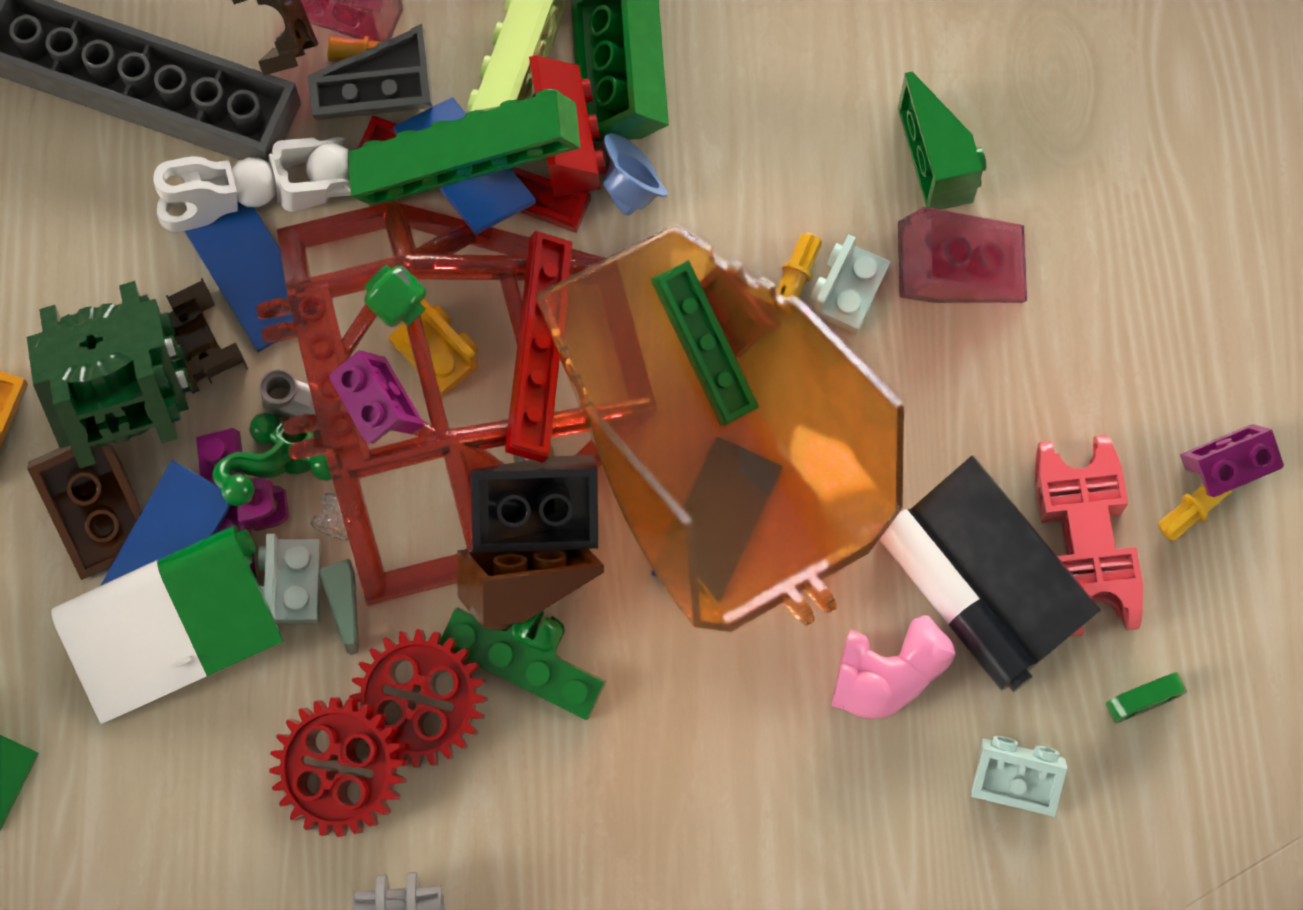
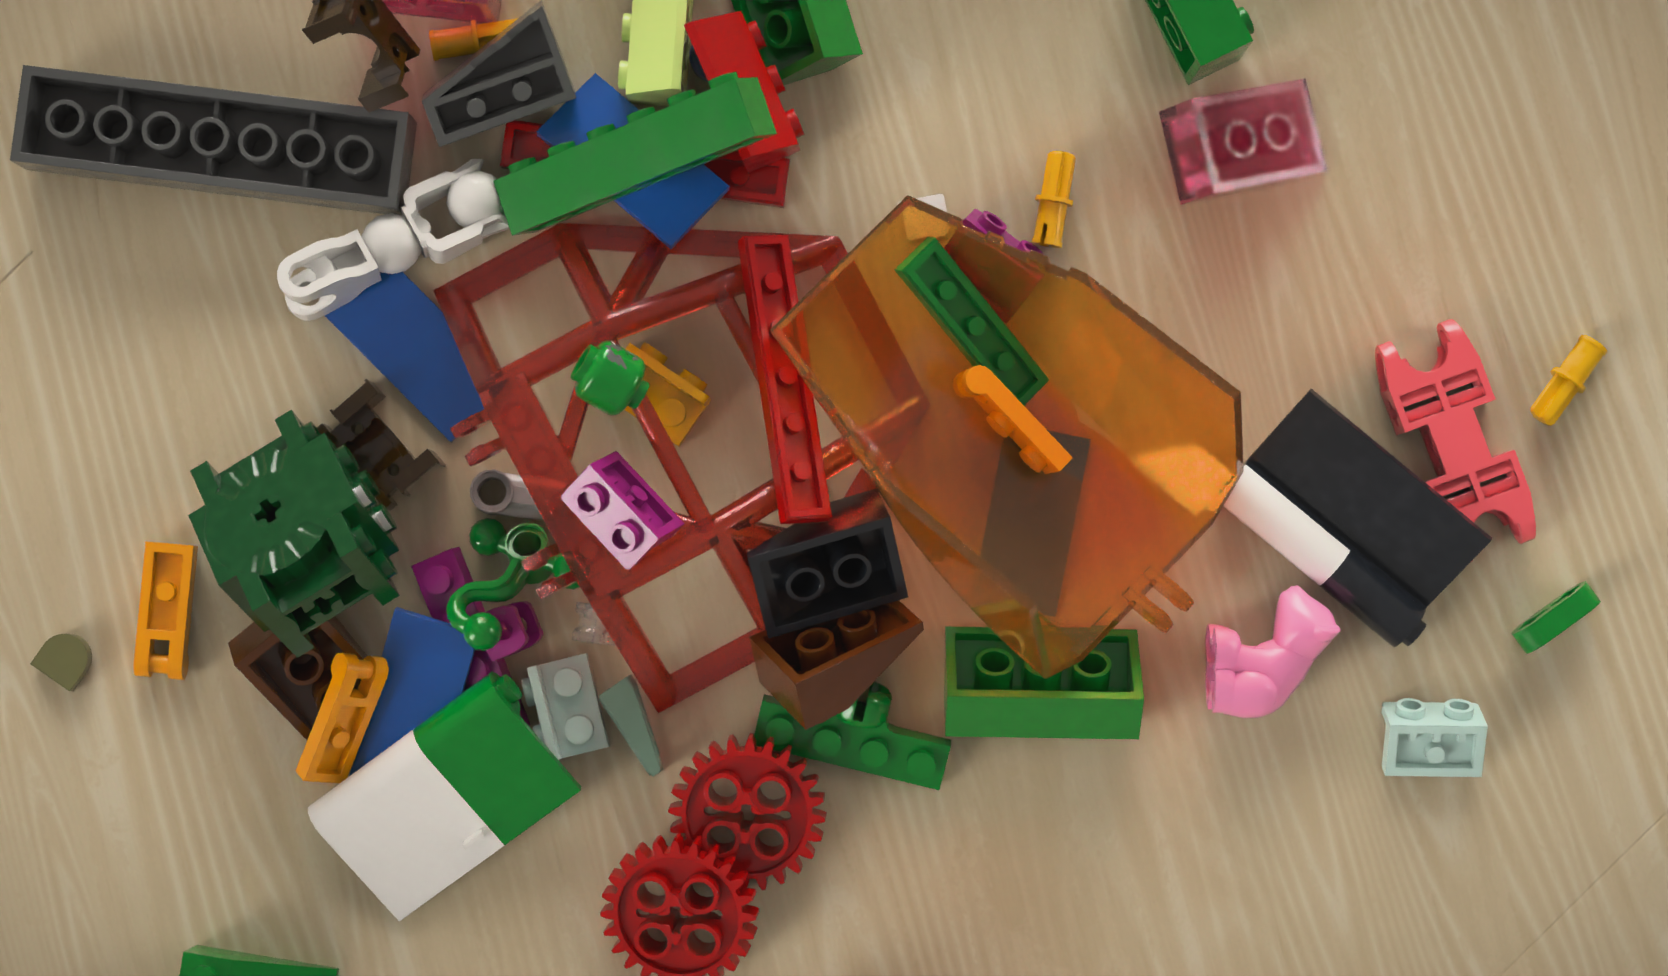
camera: 15 degrees left, 15 degrees up
(102, 538) = (342, 718): none -> light orange plate
(630, 176) = (833, 126): medium blue piece -> none
(661, 648) = (1000, 695): none -> green slope
(719, 424) = (1012, 419): none -> light orange plate
(850, 285) = (1120, 202): light aqua bracket -> none
(1234, 459) = (1603, 313): magenta bracket -> none

